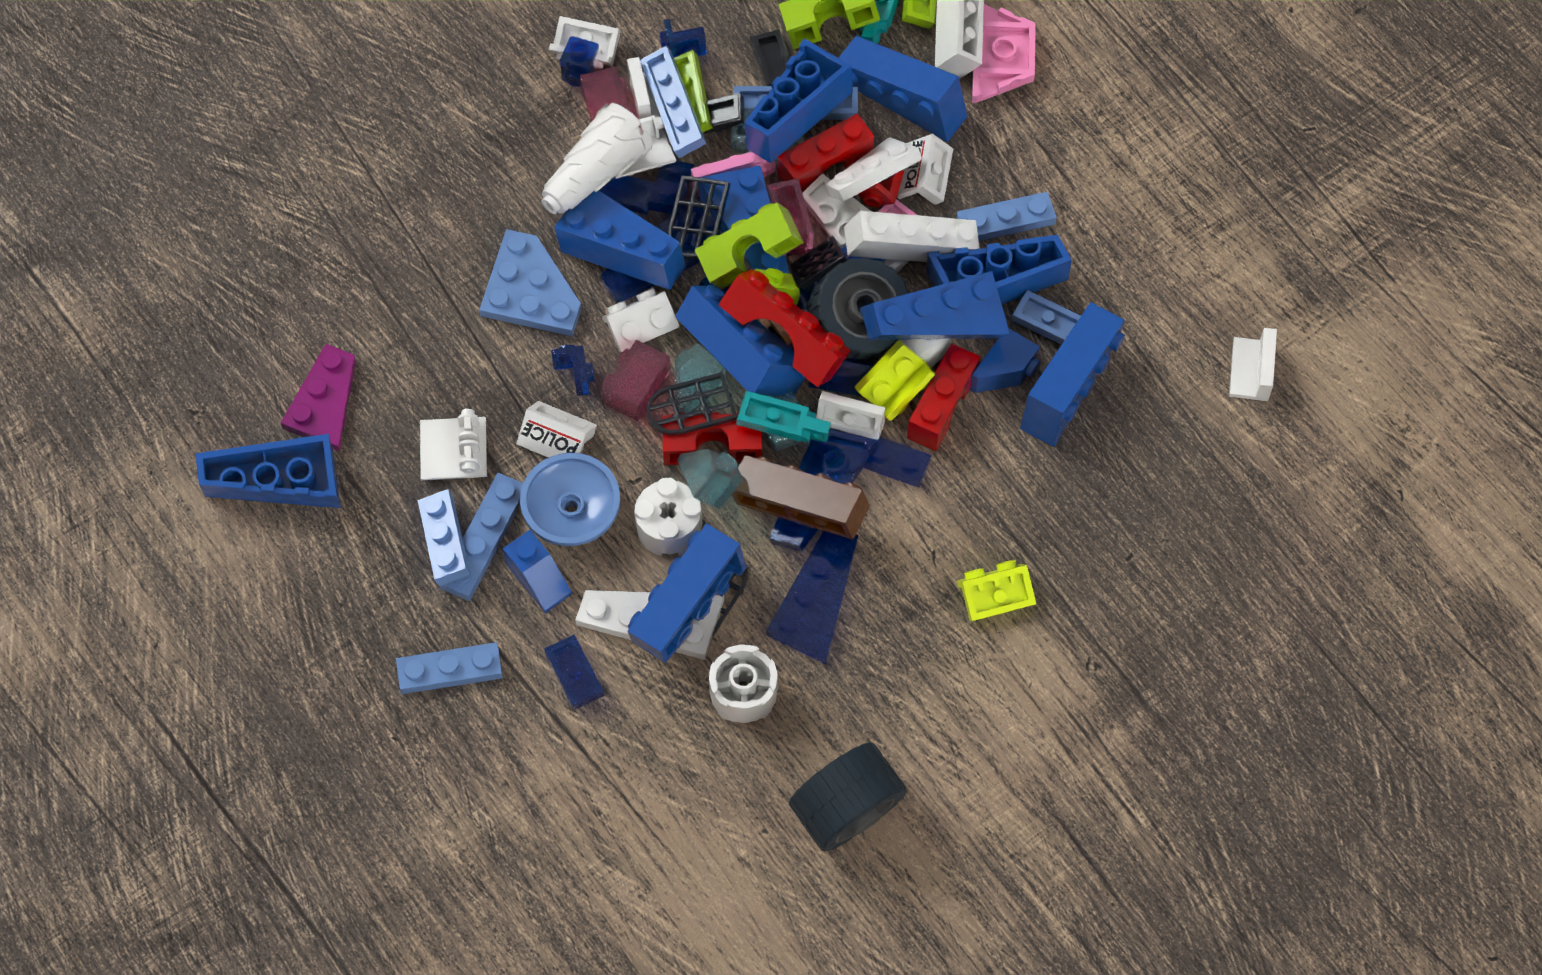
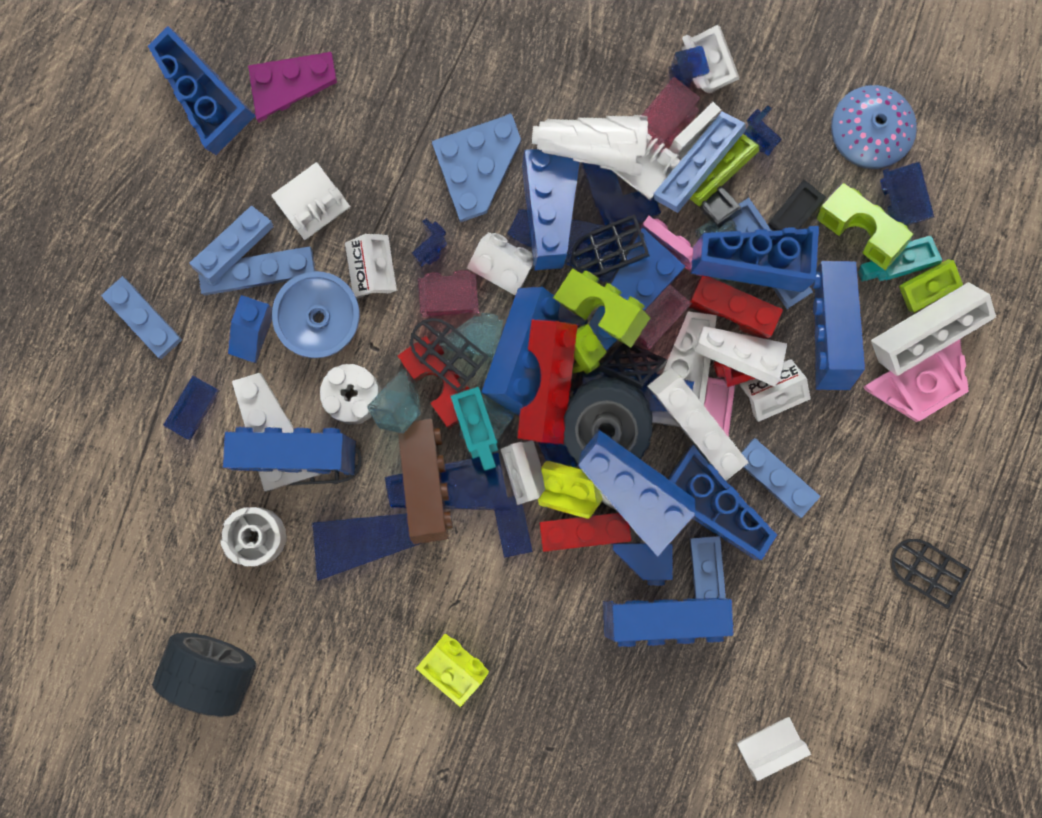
camera: 55 degrees right, 20 degrees up
(1178, 139) = (933, 581): none -> black window

